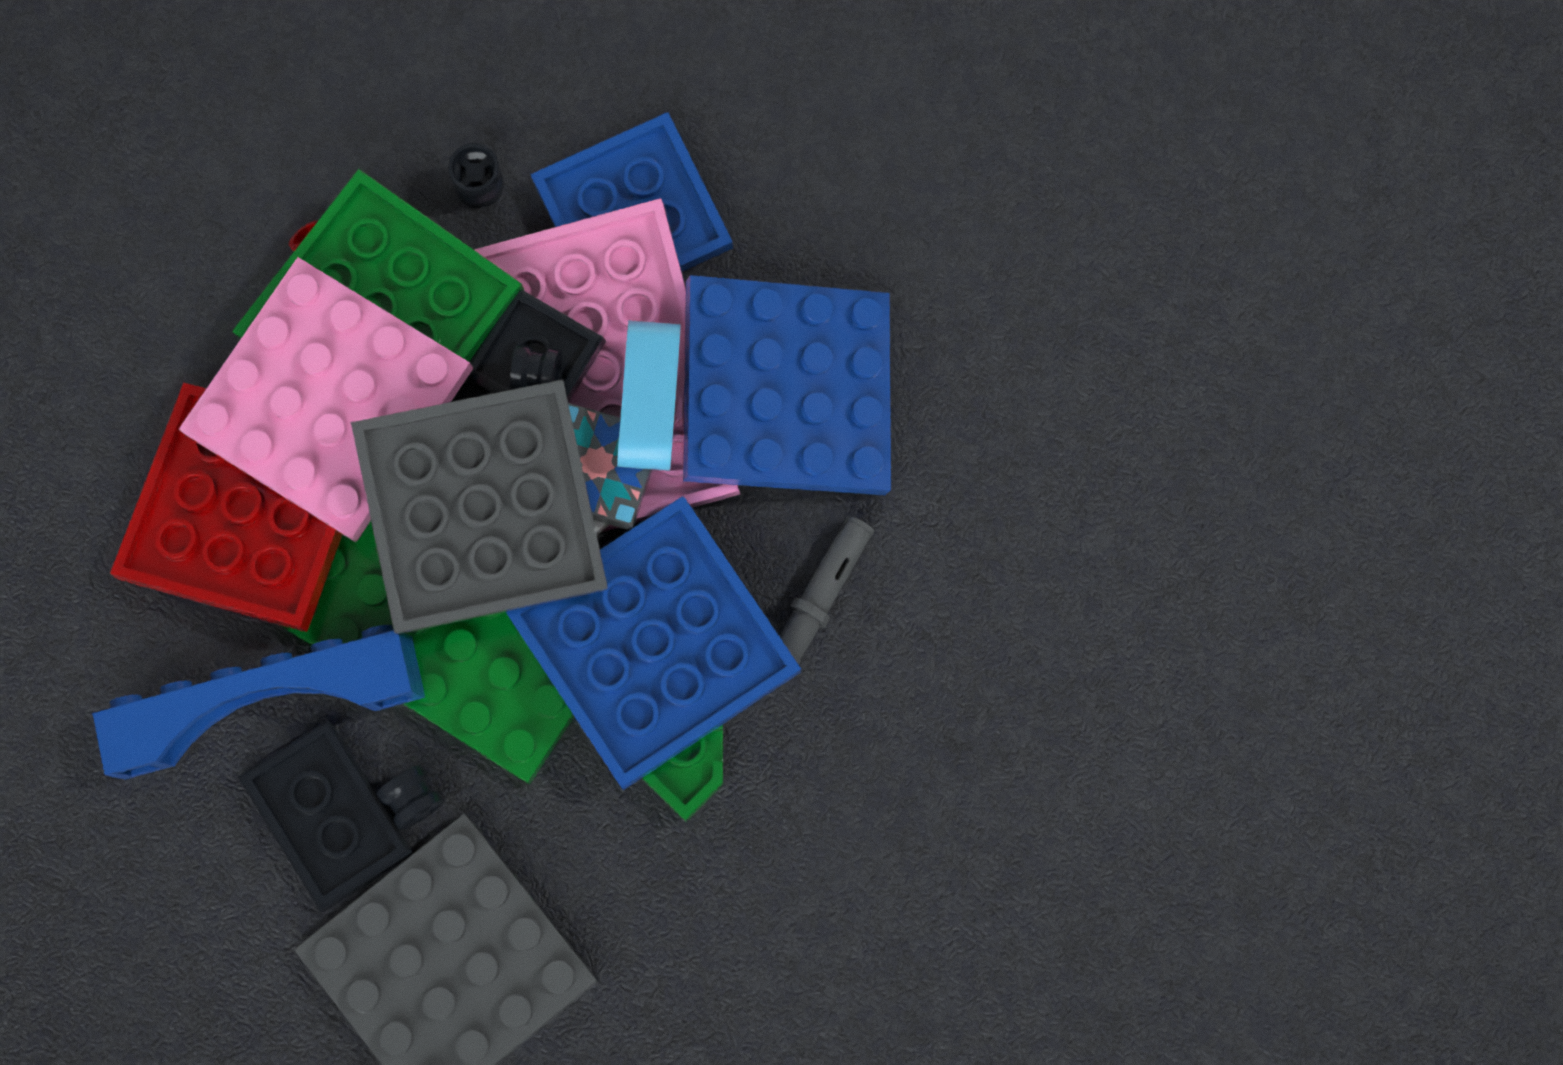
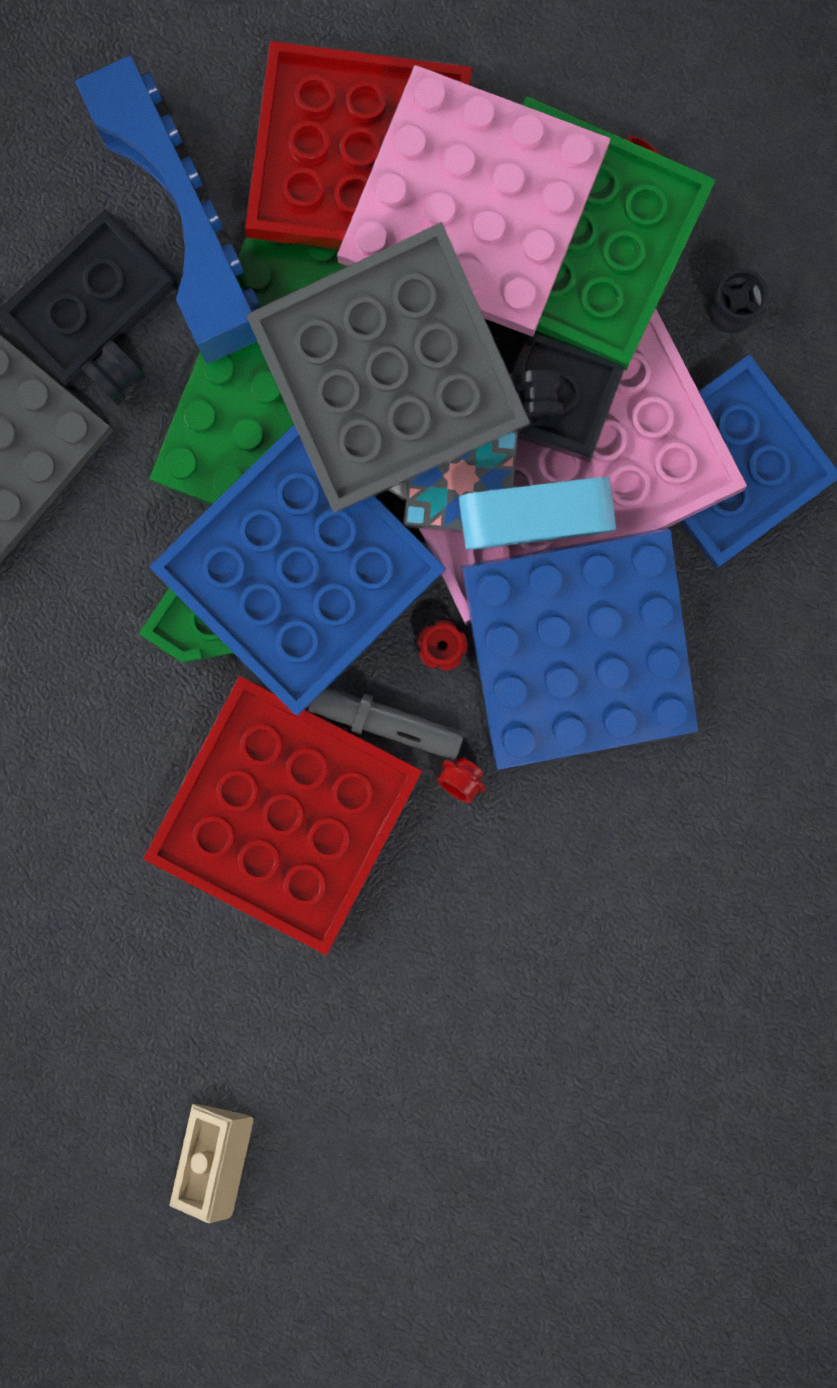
camera: 75 degrees right, 10 degrees up
(760, 509) = (456, 645): none -> red plate
(894, 528) = (461, 779): none -> red plate
(896, 710) = (282, 815): none -> red plate
(1236, 852) = (211, 1163): none -> tan slope

